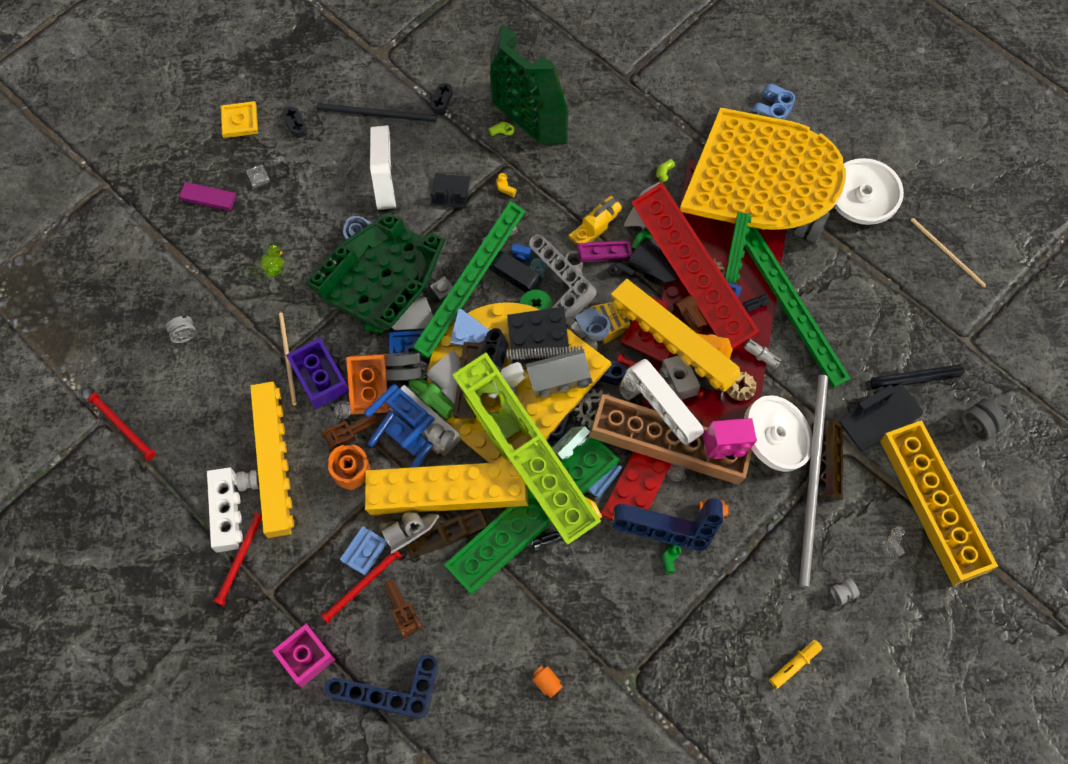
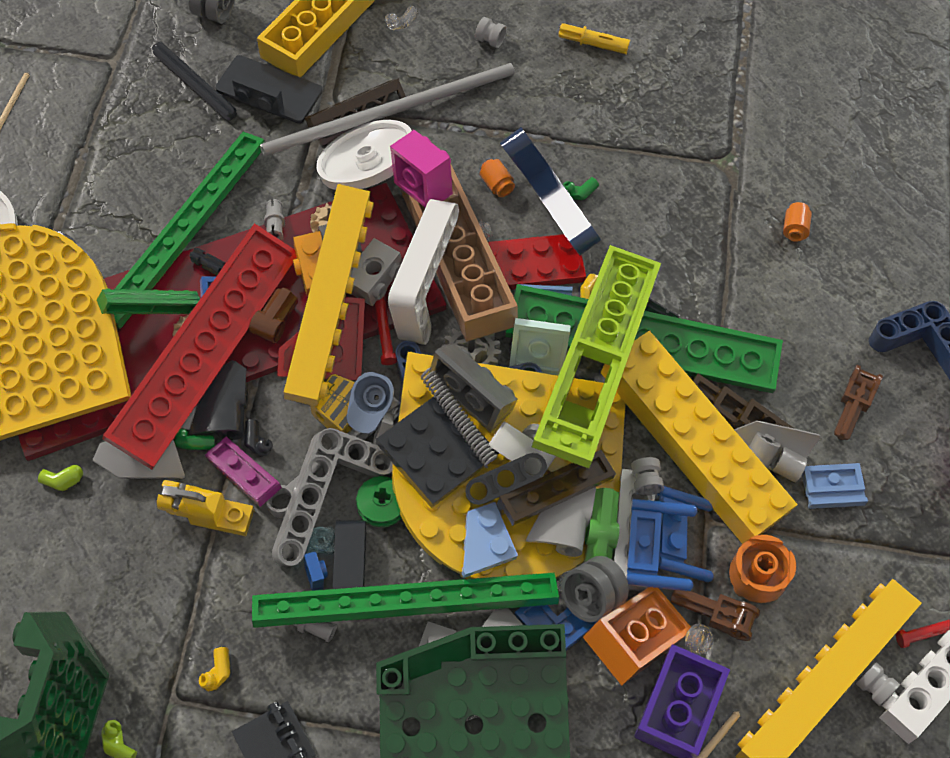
camera: 130 degrees left, 5 degrees down
(360, 586) = (877, 464): red bar -> none

